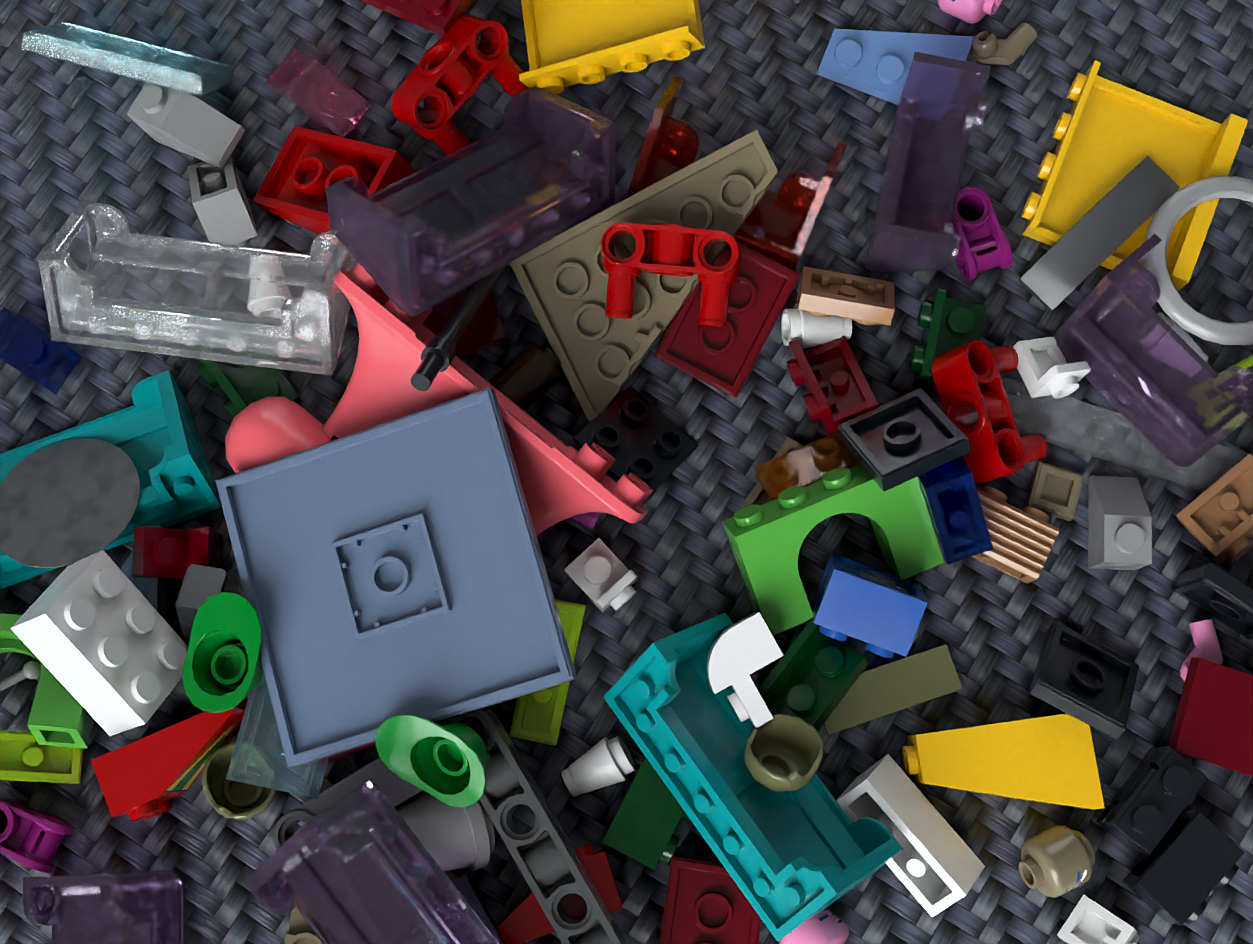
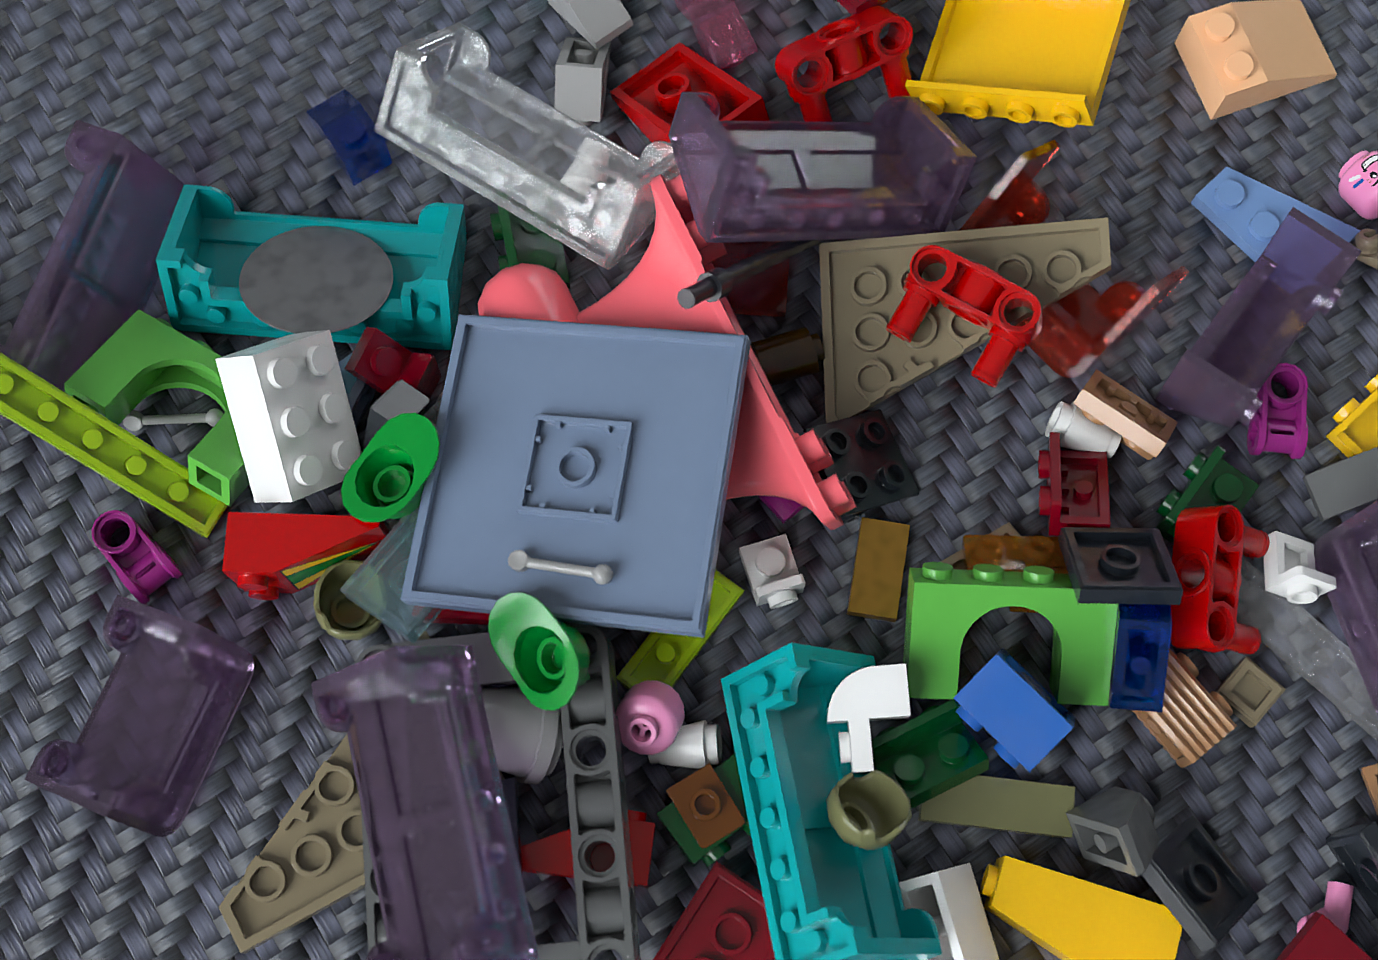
camera: 30 degrees right, 5 degrees down
(381, 684) = (520, 562): none -> light grey hinge
(556, 760) = (650, 717): none -> bright pink head
(641, 815) = (705, 806): none -> reddish brown bracket
(693, 531) = (878, 569): none -> pearl gold tile
(728, 353) = (987, 416): dark red tile -> none
(999, 667) = (1116, 830): none -> dark grey slope
(1118, 524) = (1298, 752): light grey slope -> none

